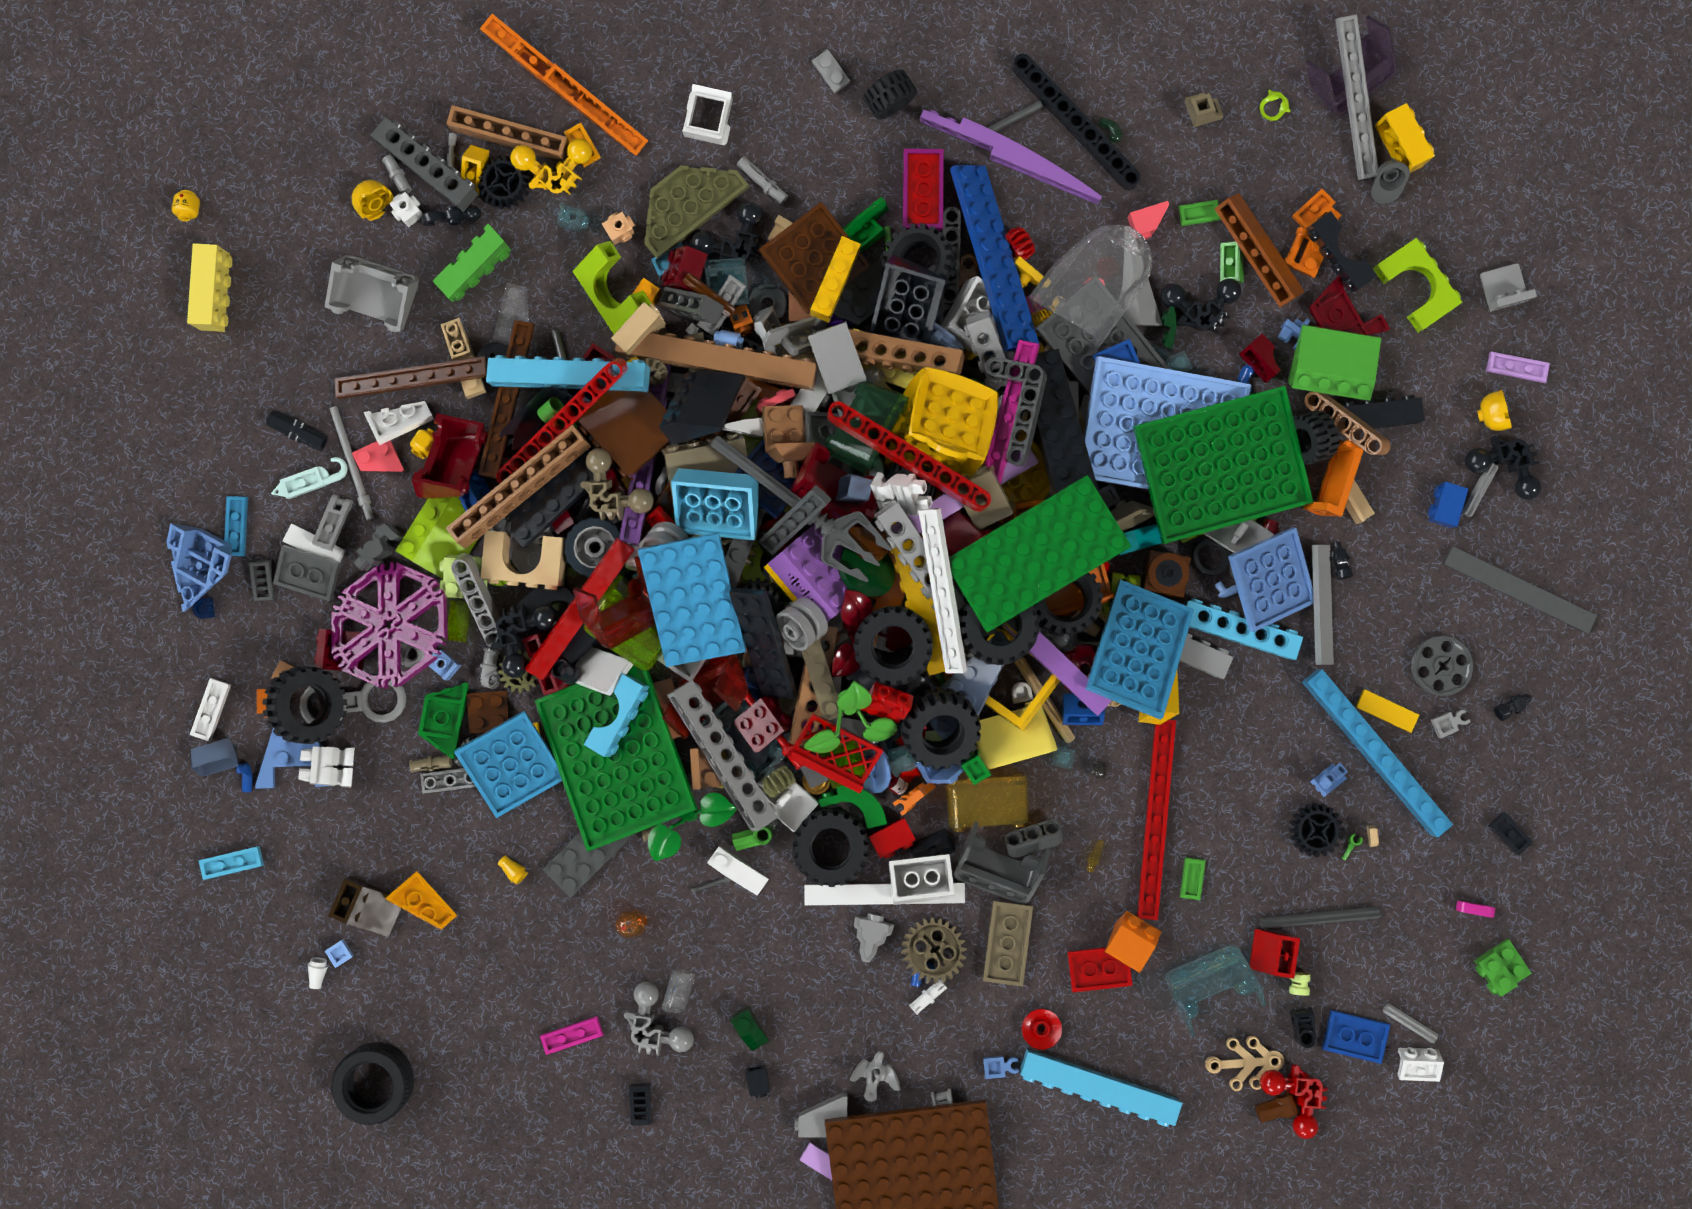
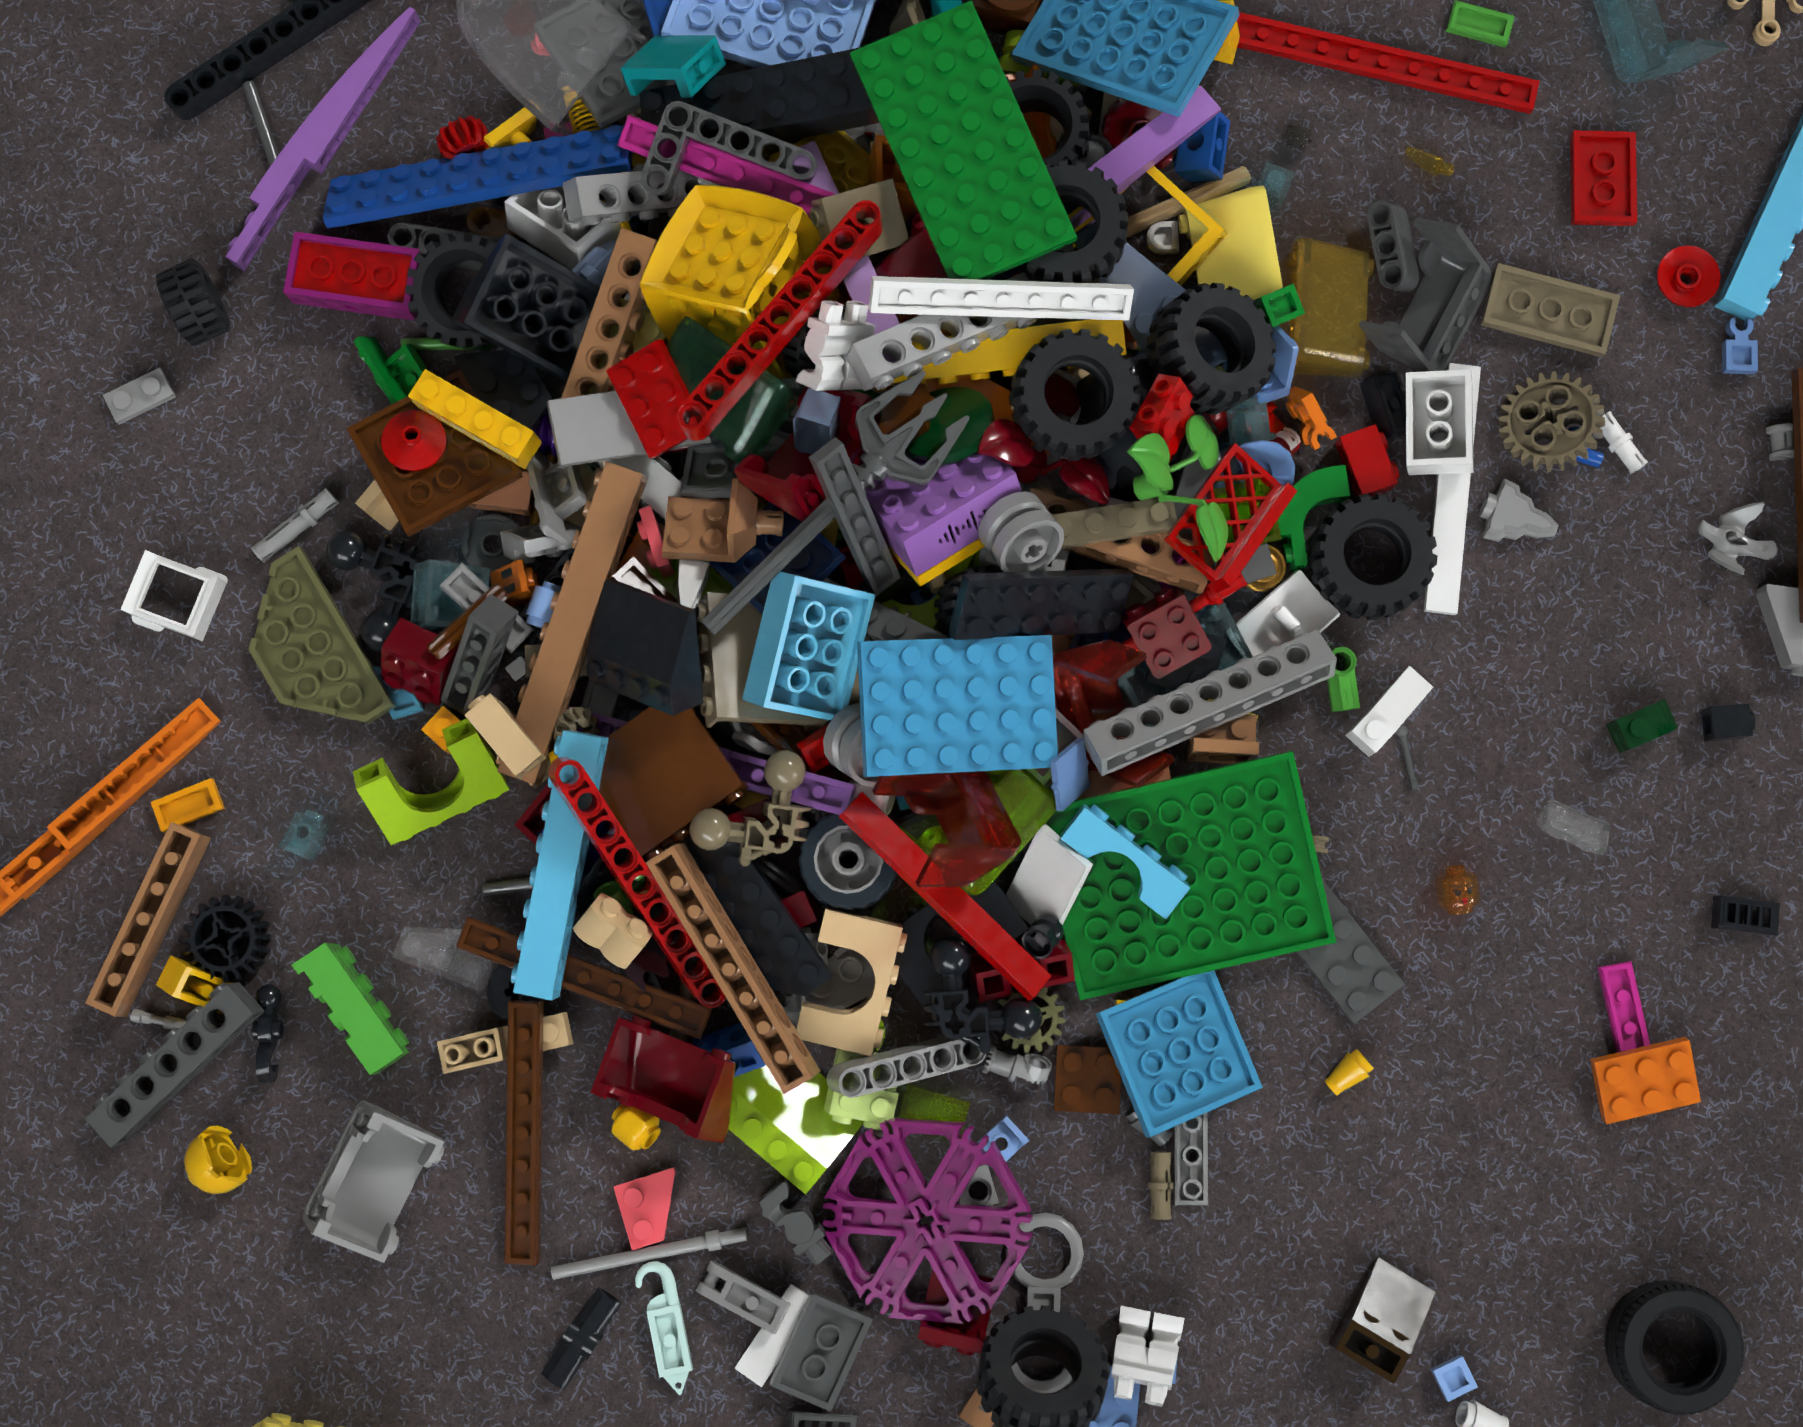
camera: 85 degrees left, 5 degrees down
(396, 174) = (183, 1115): light grey pin -> none
(396, 422) = (593, 1170): white wing -> none
(406, 208) = (253, 1101): white brick -> none
(422, 901) = (1385, 1226): light orange wing -> none
(443, 718) = (1090, 1153): green wing -> none
(524, 159) = (194, 894): yellow piece -> none
(531, 1051) = (1645, 1080): none -> orange plate
(532, 410) = (613, 931): none -> tan brick
(618, 234) = (340, 768): light nougat brick -> none
(665, 675) = (1070, 774): none -> medium blue piece
(679, 1039) = (1649, 837): light grey piece -> none
(714, 812) = (1340, 807): green plant -> none
(778, 781) = (1260, 622): olive gear -> none
(811, 250) = (415, 453): none -> red dish
(857, 385) = (651, 396): none -> red plate
(1078, 367) = (682, 58): none -> teal panel
(1132, 941) = (1568, 118): orange slope -> none

